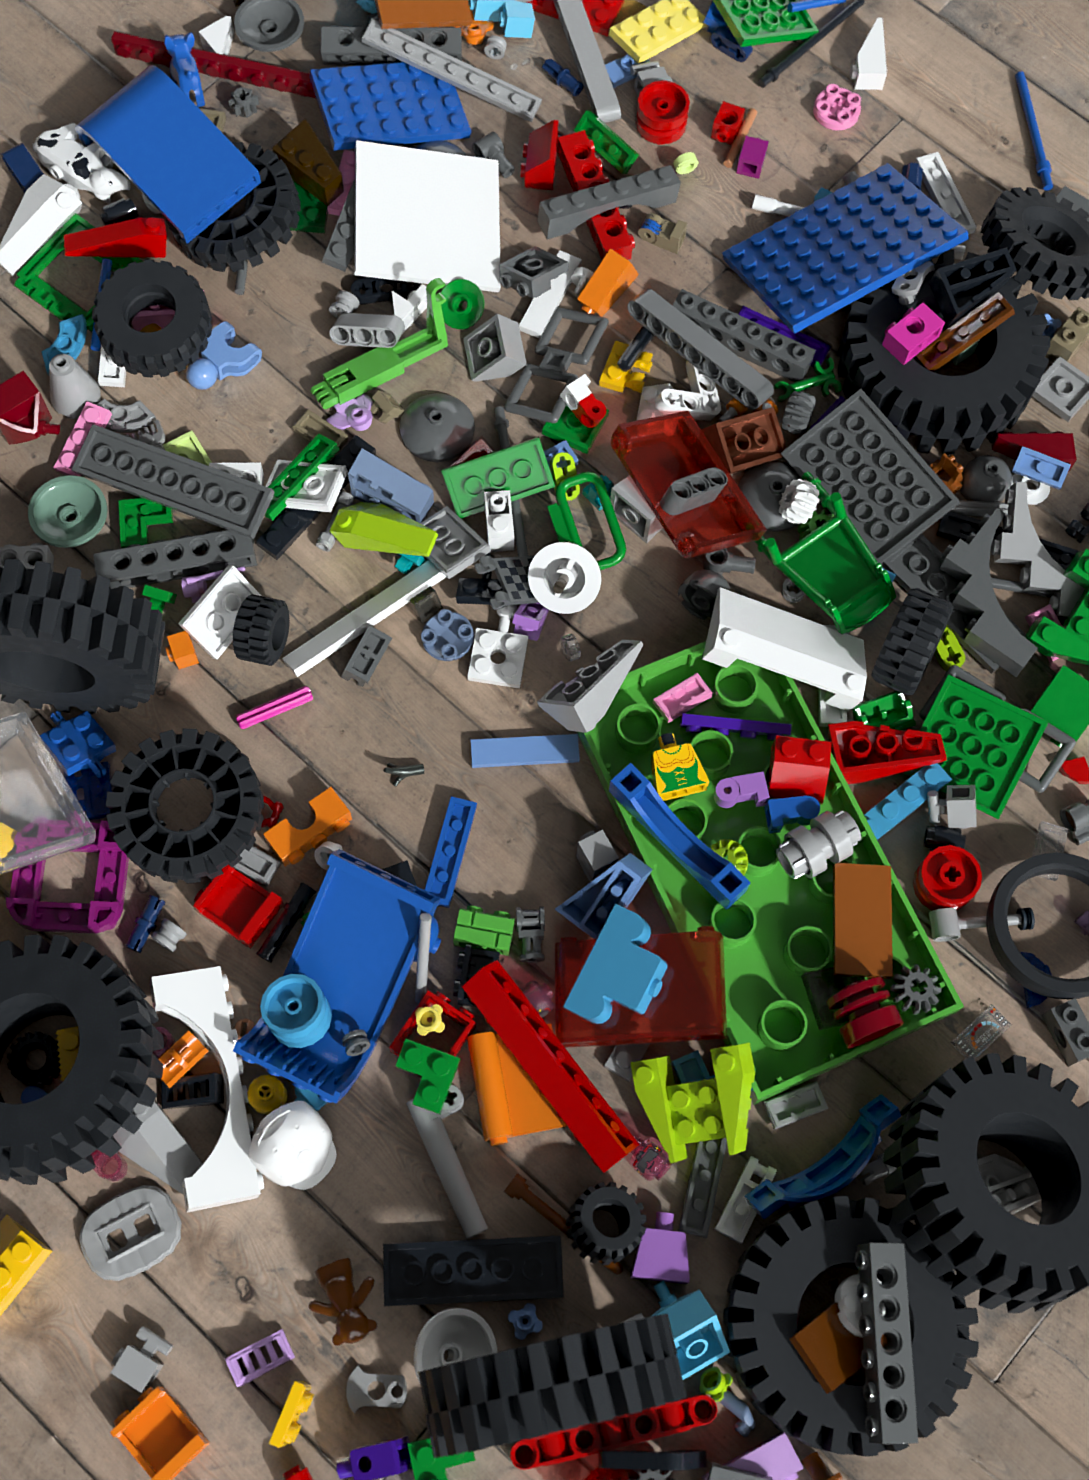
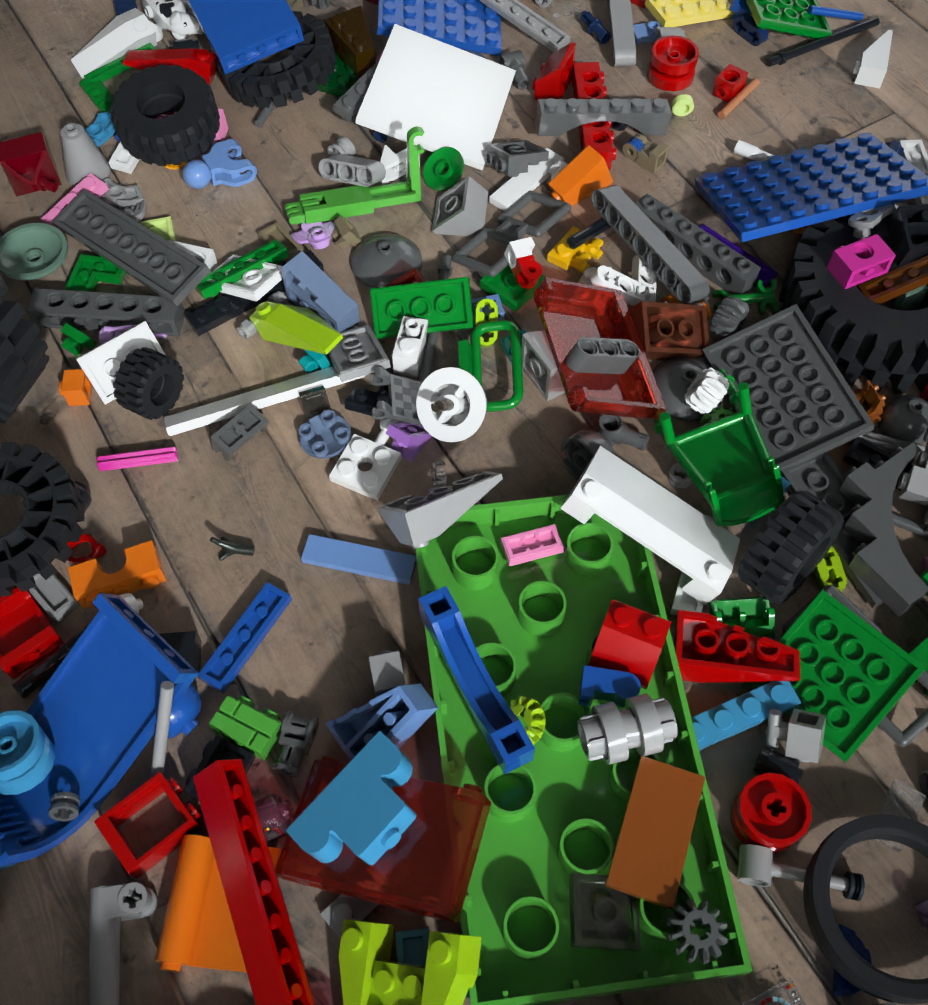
camera: 20 degrees right, 10 degrees down
(380, 296) = (364, 144): black beam -> none
(422, 1015) = (138, 800): light yellow plate -> none
(436, 1072) = (128, 867): green plate -> none
(607, 142) = (617, 77): green plate -> none
(677, 769) = (496, 610): torso -> none
(741, 789) = (560, 648): medium lavender leg -> none
(747, 728) = (588, 590): dark purple plate -> none
(752, 157) = (745, 112): magenta brick -> none
(837, 108) = (834, 92): bright pink tile -> none
(864, 1012) = (626, 931): dark red wheel -> none

